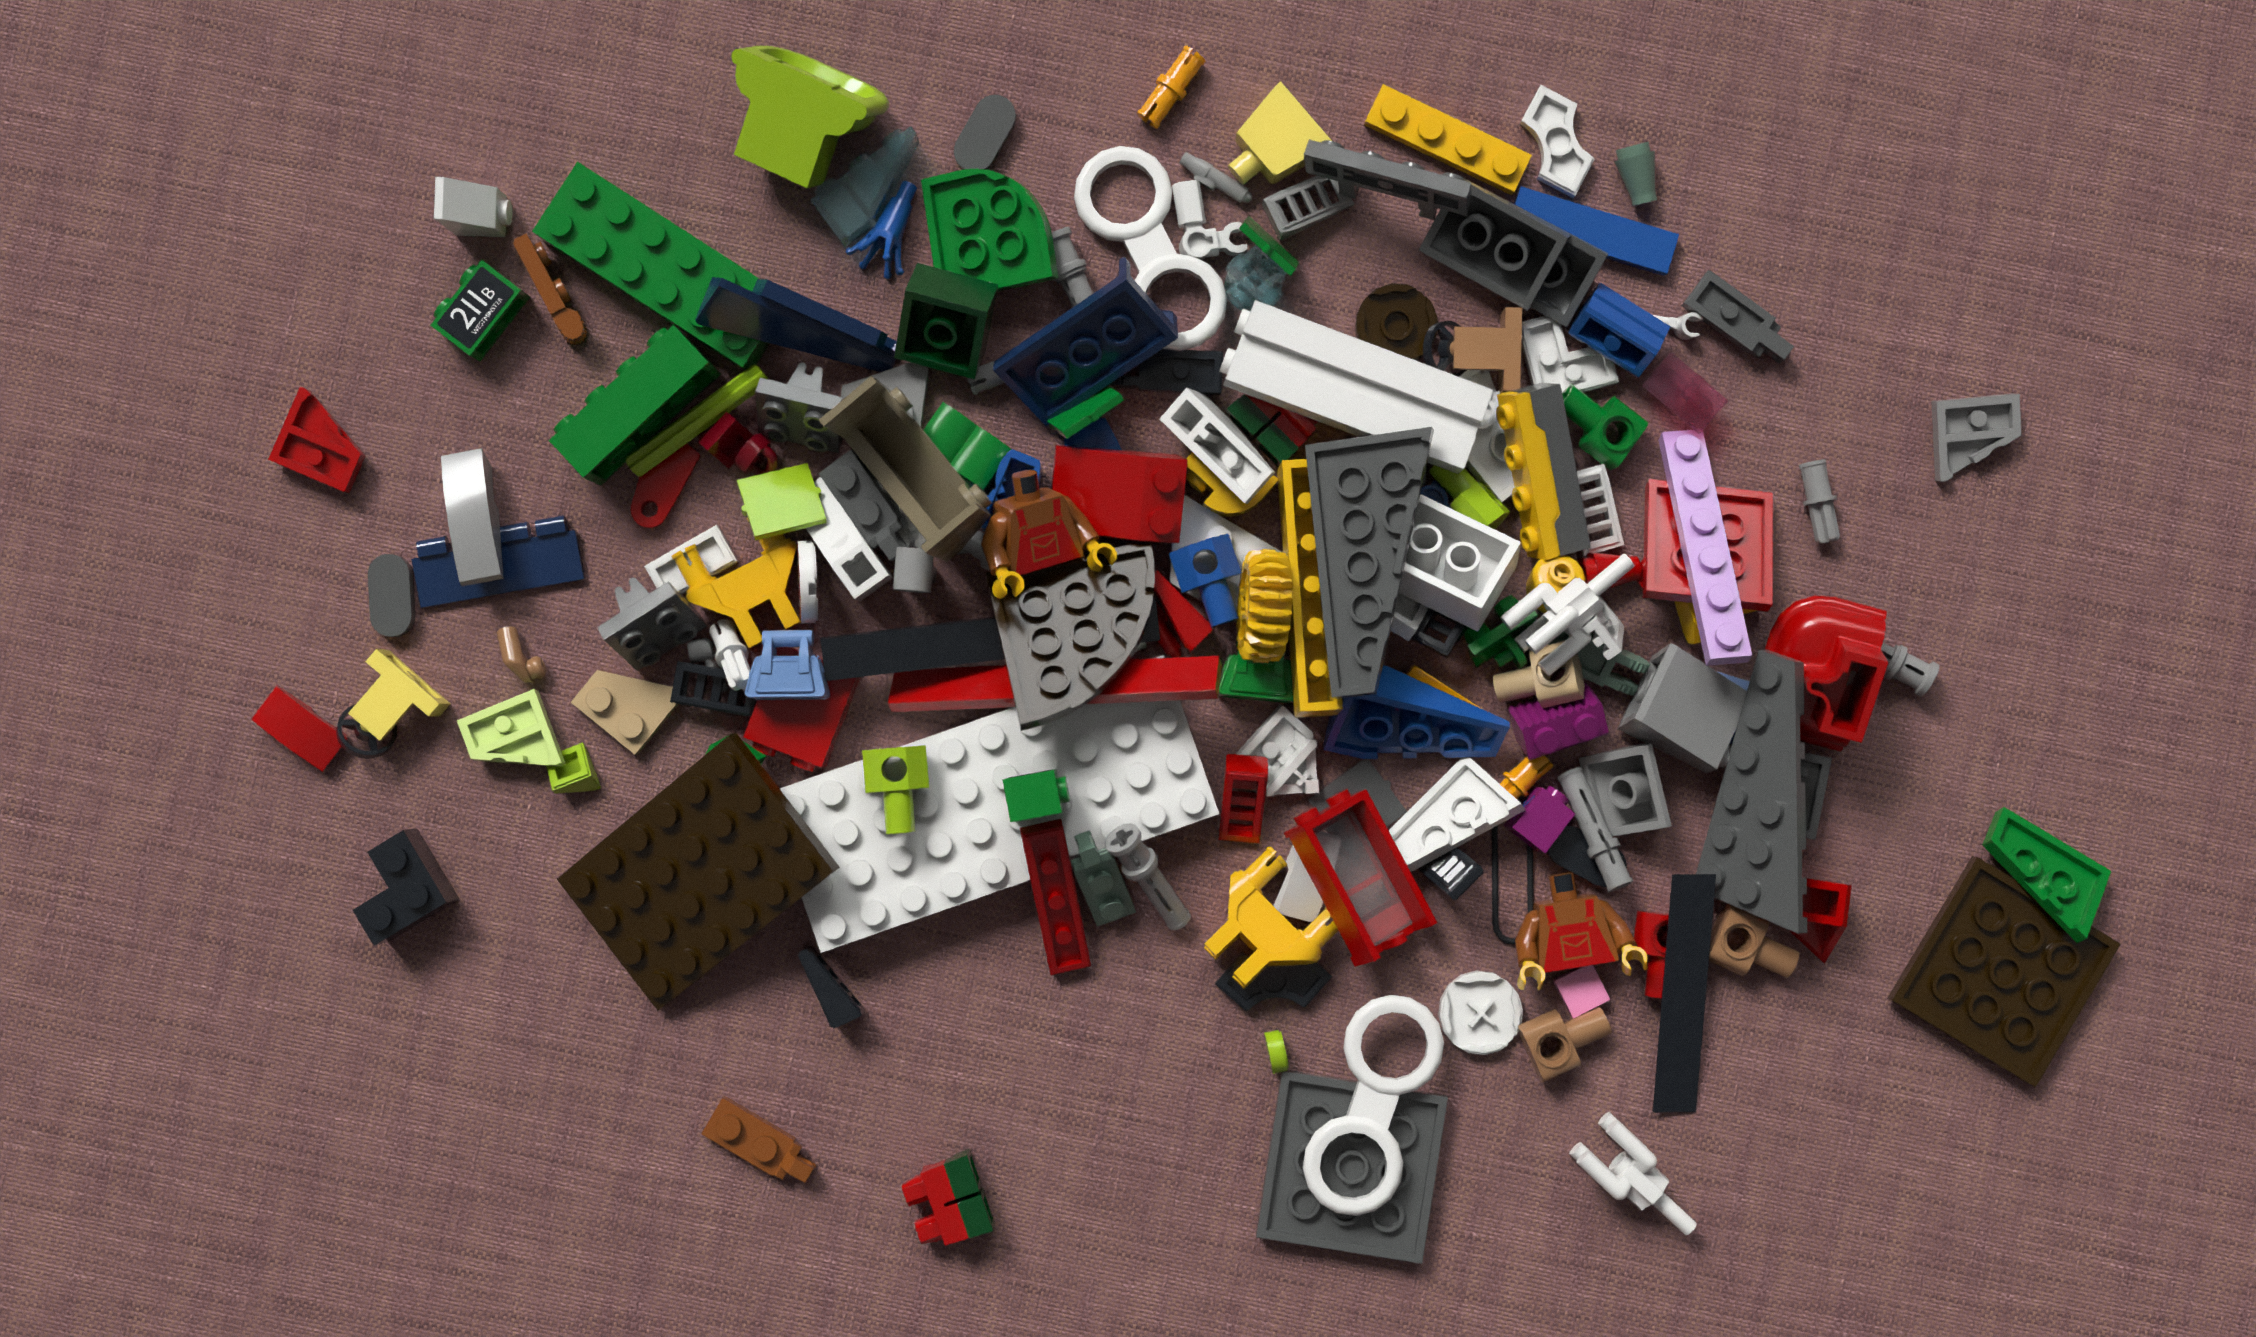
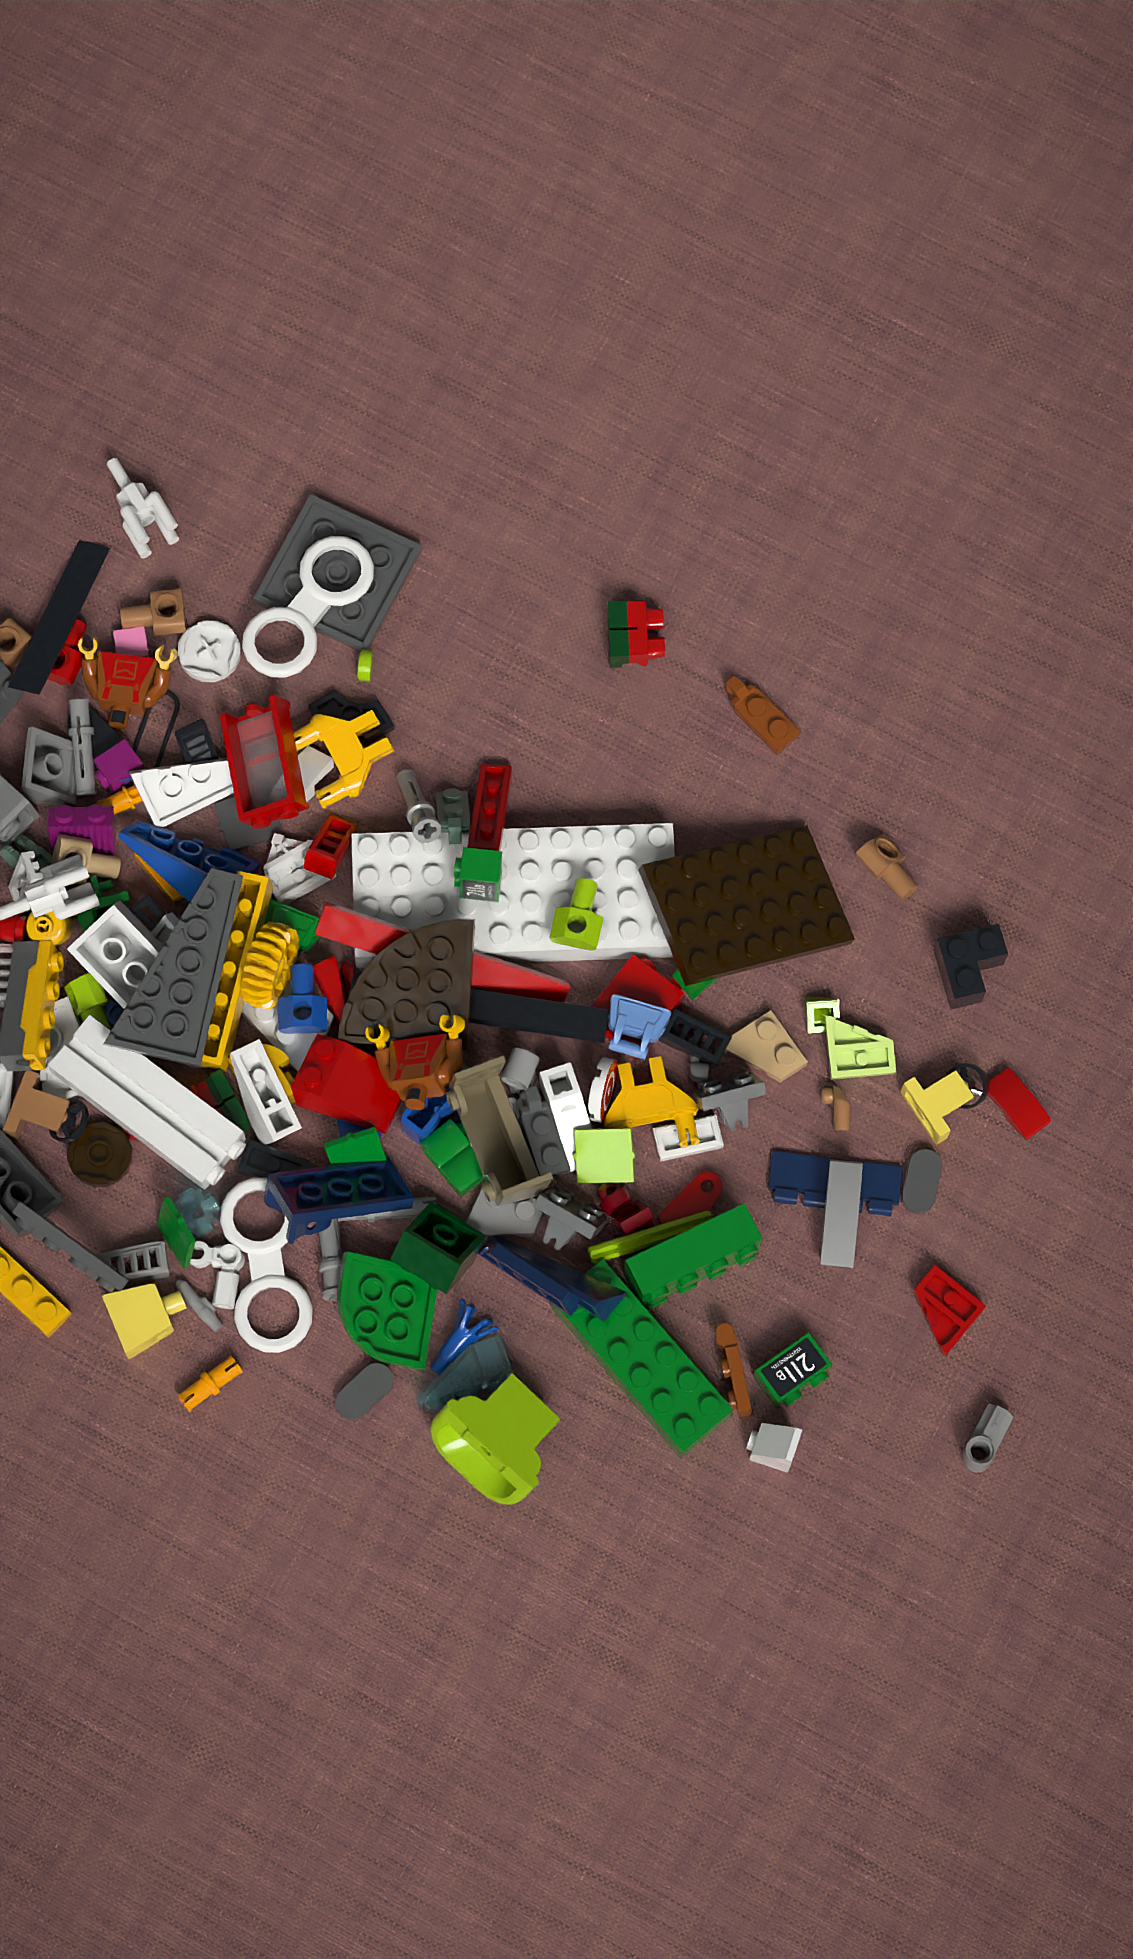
camera: 165 degrees left, 15 degrees down
(223, 305) = (987, 1436): none -> light grey piece
(549, 990) = (884, 862): none -> medium nougat piece
(731, 654) = (675, 1054): white axle -> none
(834, 997) = (673, 794): black slope -> none

